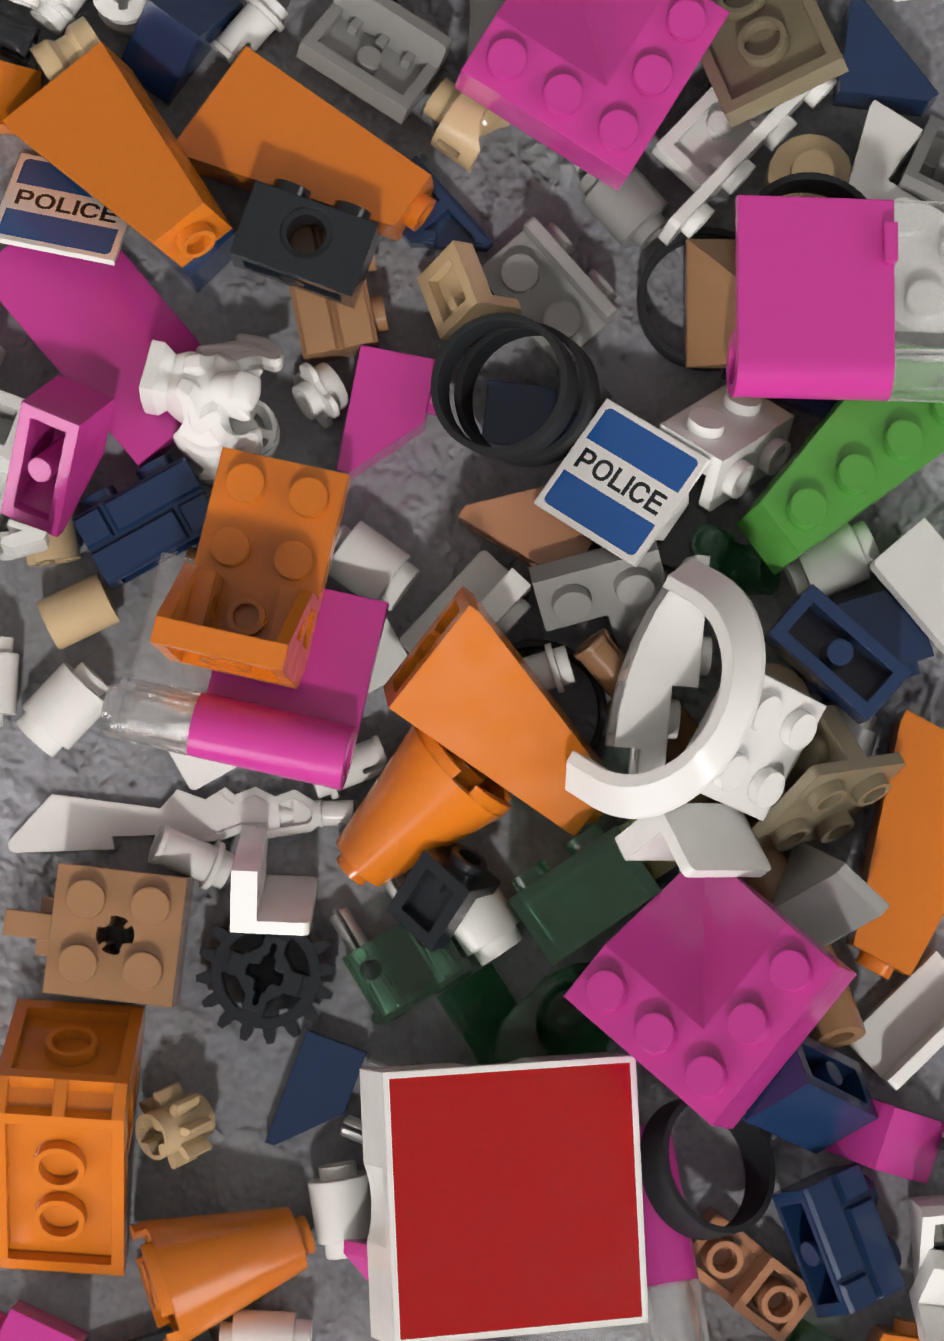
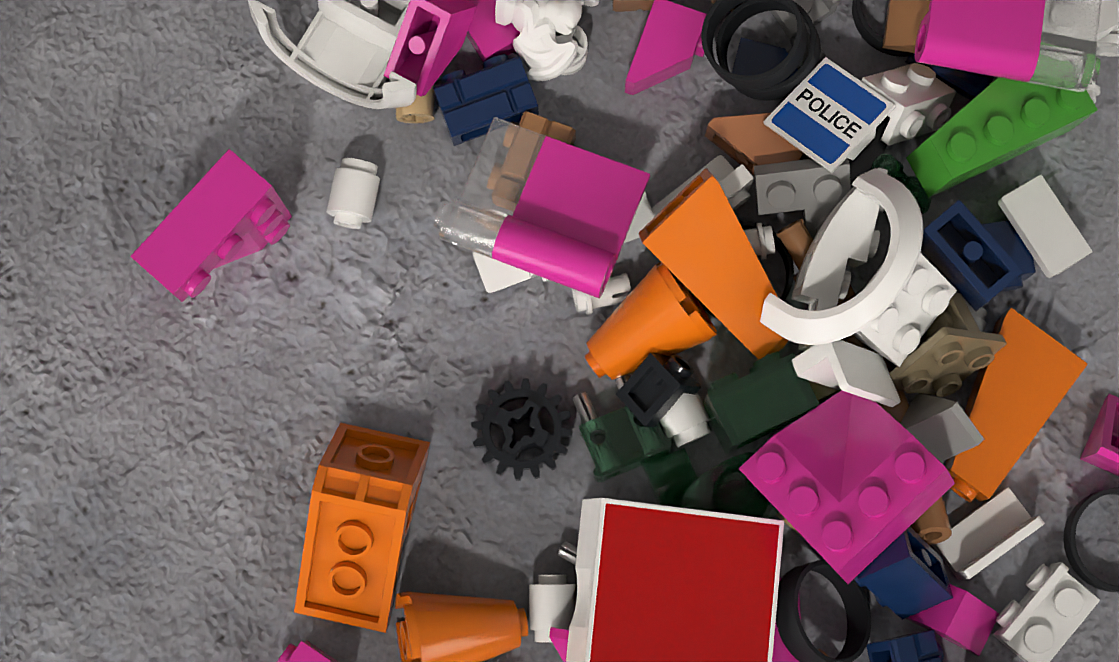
camera: 10 degrees right, 5 degrees down
(63, 708) = (406, 220): white brick -> none
(73, 934) = (404, 359): medium nougat hinge -> none
(78, 611) = (426, 155): tan piece -> none
(91, 824) = (479, 313): white sword -> none
(175, 1125) = (439, 528): tan gear -> none
(192, 857) = (481, 339): white pin -> none
(256, 570) = (561, 136): orange bracket -> none
(265, 901) = (527, 375): white panel -> none
(316, 1086) = (545, 517): dark blue tile -> none
(319, 393) = (620, 28): white plate -> none
(371, 565) = (639, 149): white brick -> none
(835, 562) = (977, 193): white brick -> none

